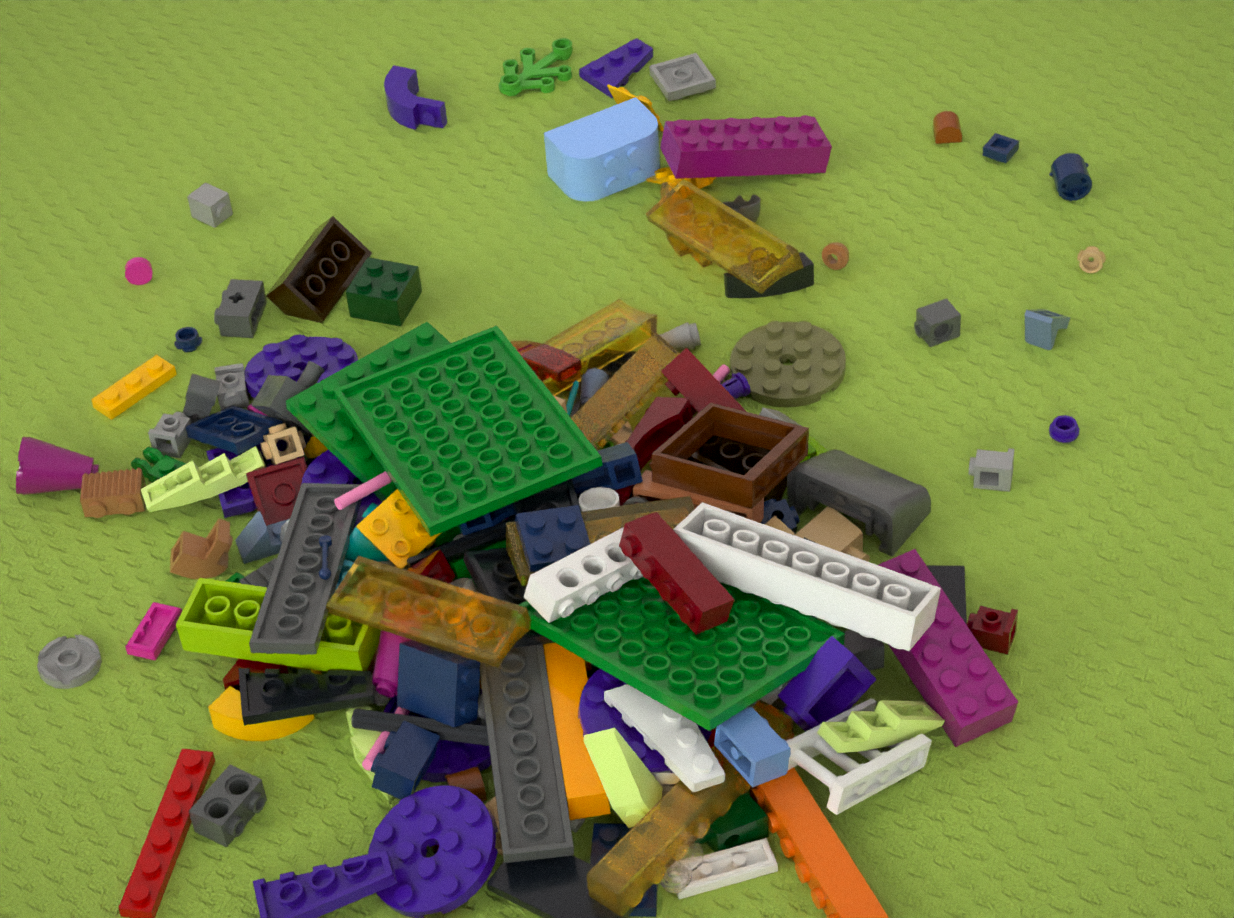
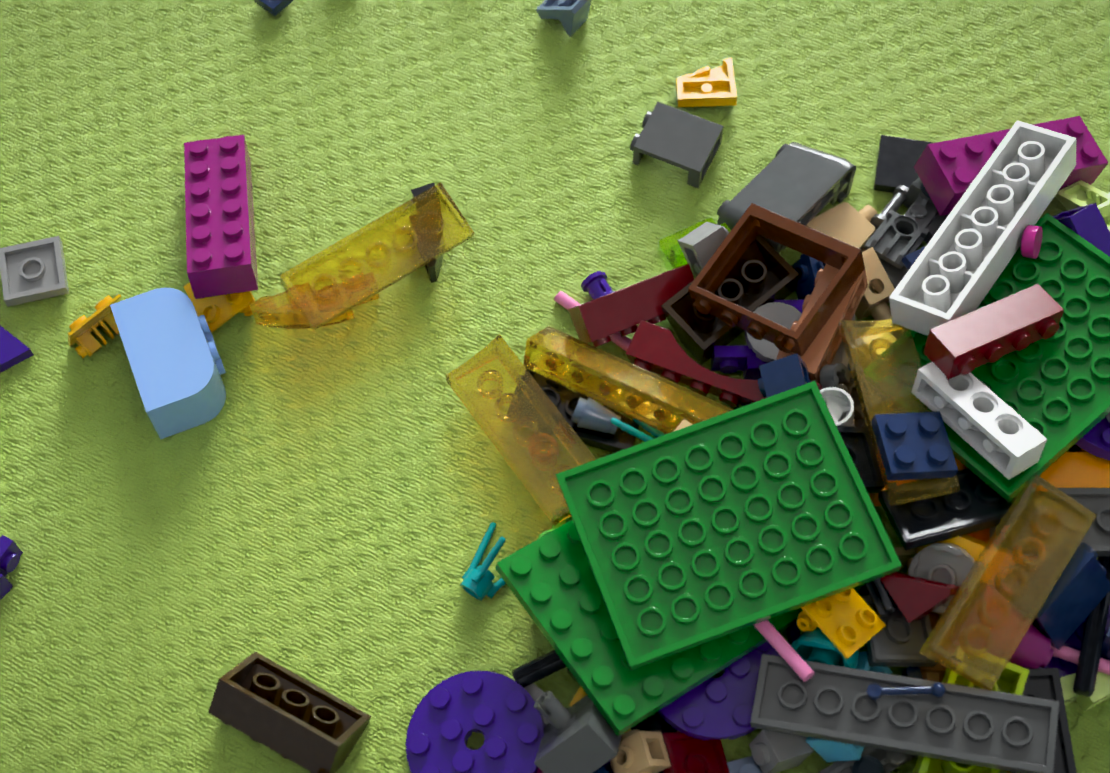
camera: 85 degrees left, 20 degrees up
(384, 291) = (351, 635): dark green brick -> none
(548, 360) = (572, 449): clear red slope -> none
(683, 336) = (506, 323): light grey cone -> none
(749, 209) = (309, 238): dark grey hair -> none
(796, 610) = (1031, 241): none -> dark pink tile
(815, 356) = (545, 213): olive plate -> none
(840, 251) = (408, 167): medium nougat plate -> none
(906, 419) = (678, 140): none -> dark grey panel
(937, 322) = (539, 96): dark grey brick -> none
(947, 128) = (222, 38): dark orange brick -> none
(985, 432) = (708, 87): none -> yellow wing
(992, 469) = (759, 87): light grey brick -> none
(994, 628) = (966, 121): dark red brick -> none
(1064, 429) = (711, 21): dark purple plate -> none

